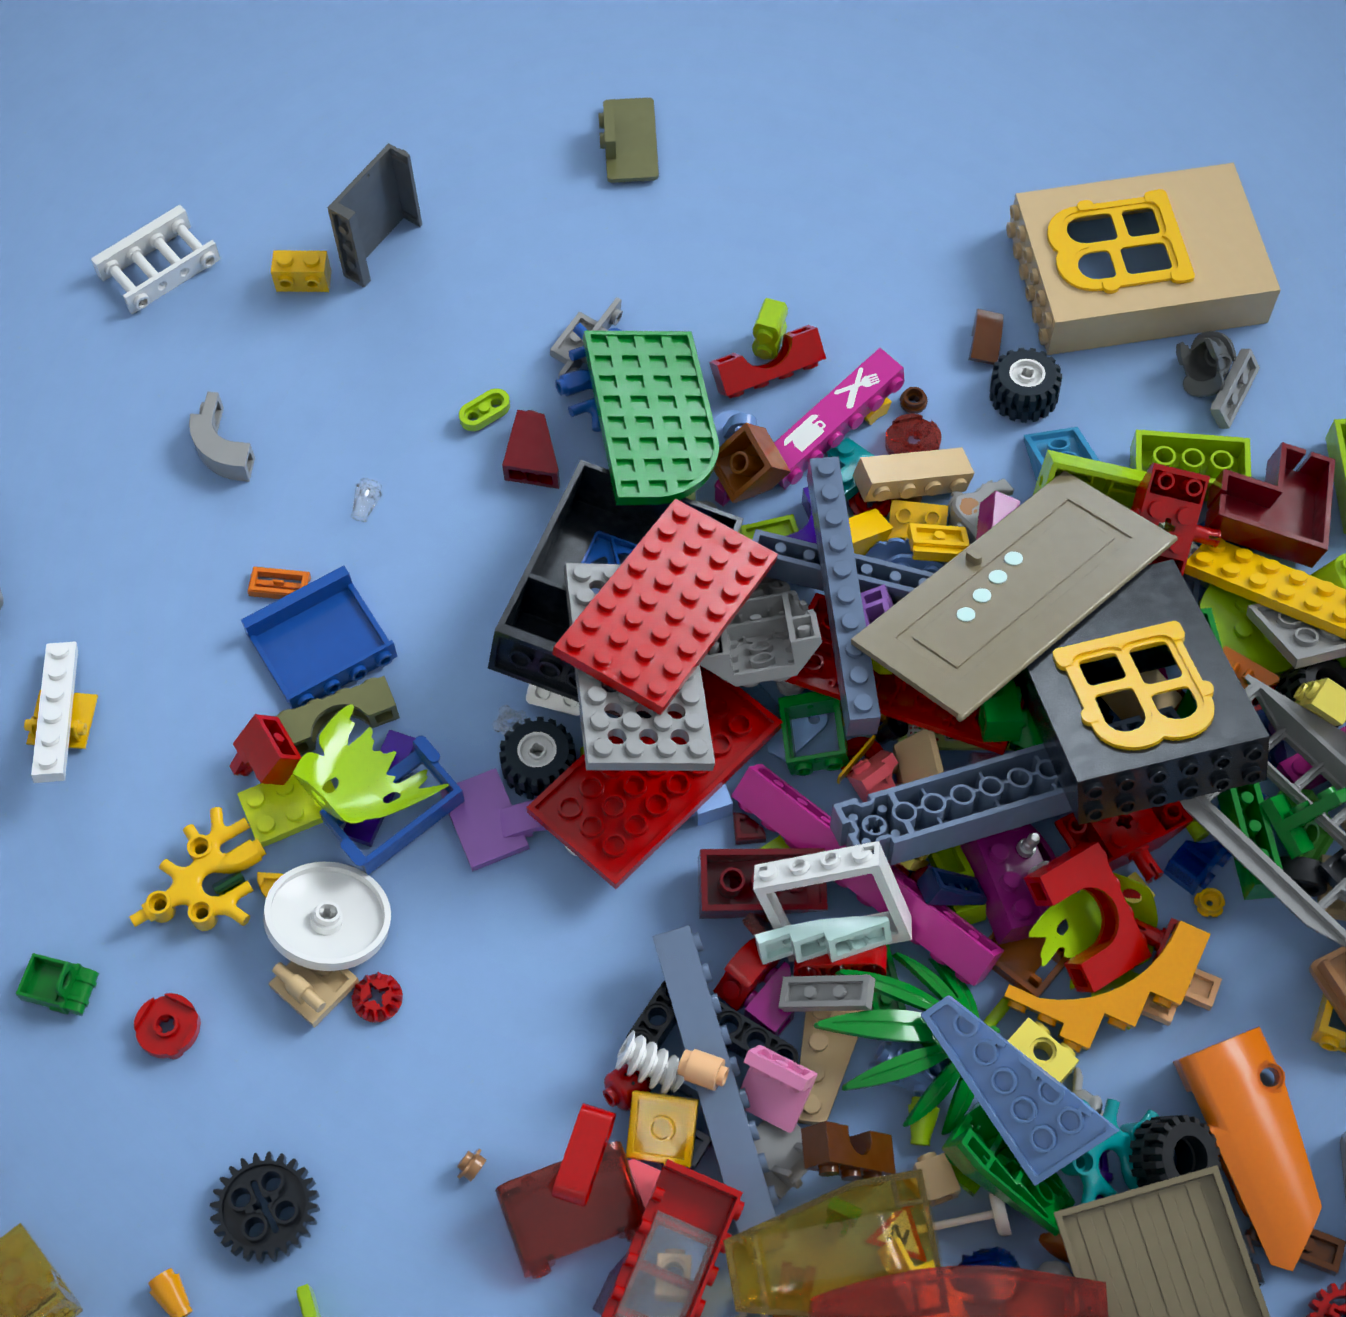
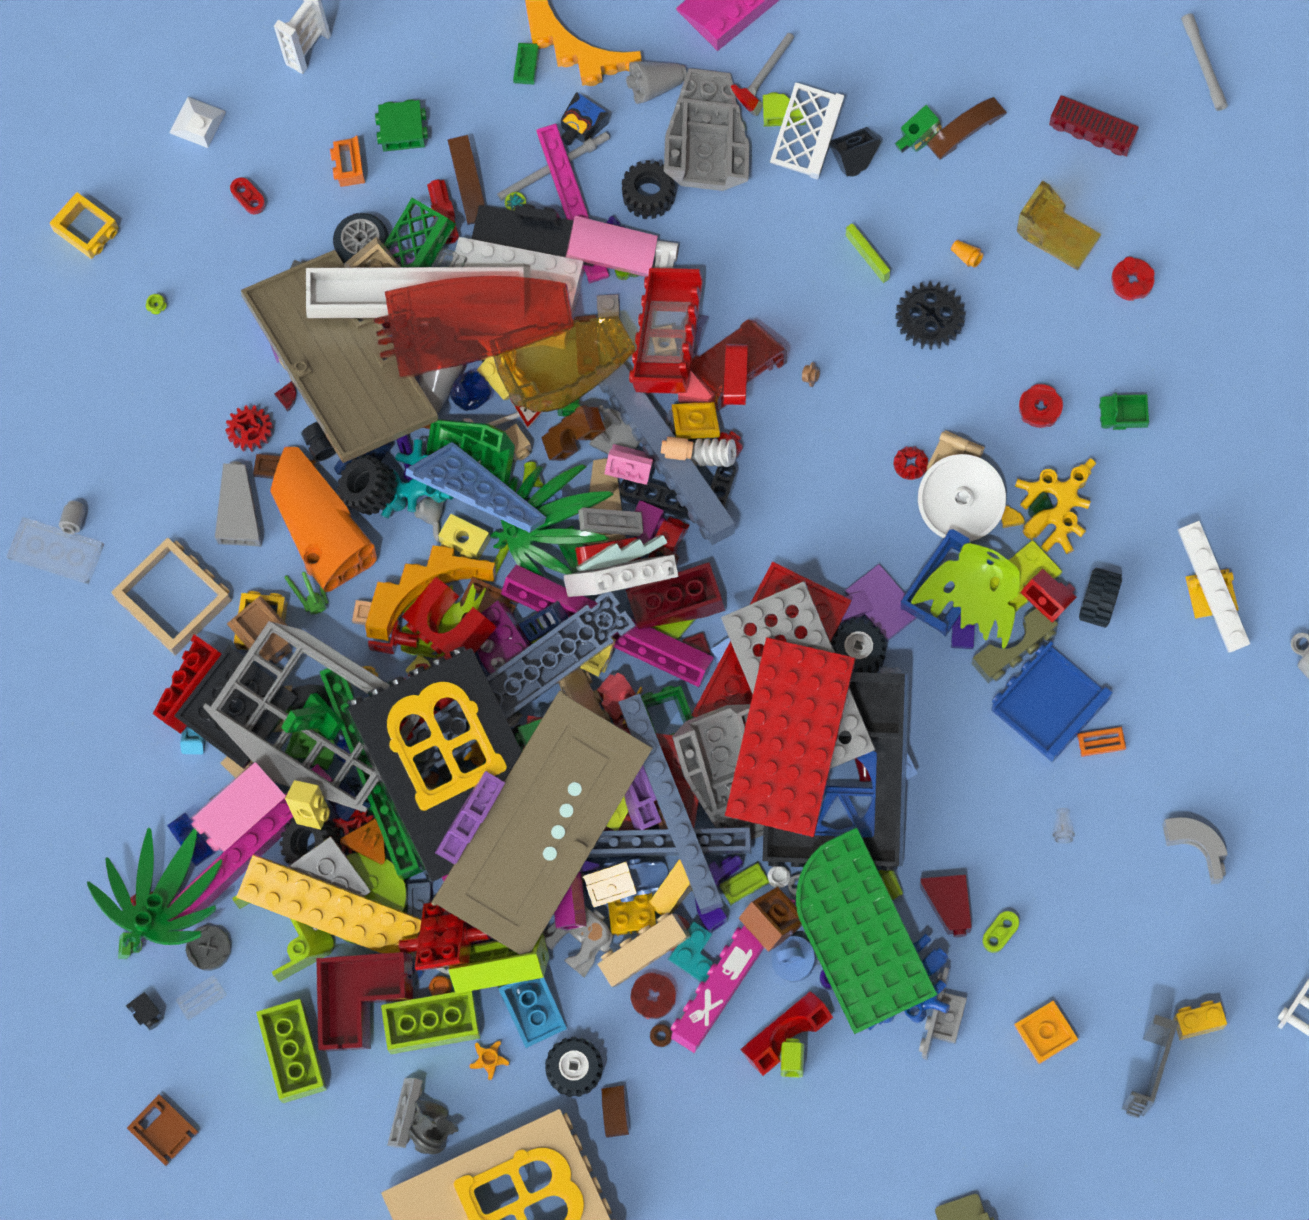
camera: 170 degrees right, 10 degrees up
(202, 731) = (1100, 597): none -> black wheel
(474, 302) = (1046, 1032): none -> light orange plate
(1113, 605) = (470, 817): none -> medium lavender slope
(1123, 423) = (488, 1059): none -> light orange animal
(1274, 1024) = (315, 602): none -> bright green plant

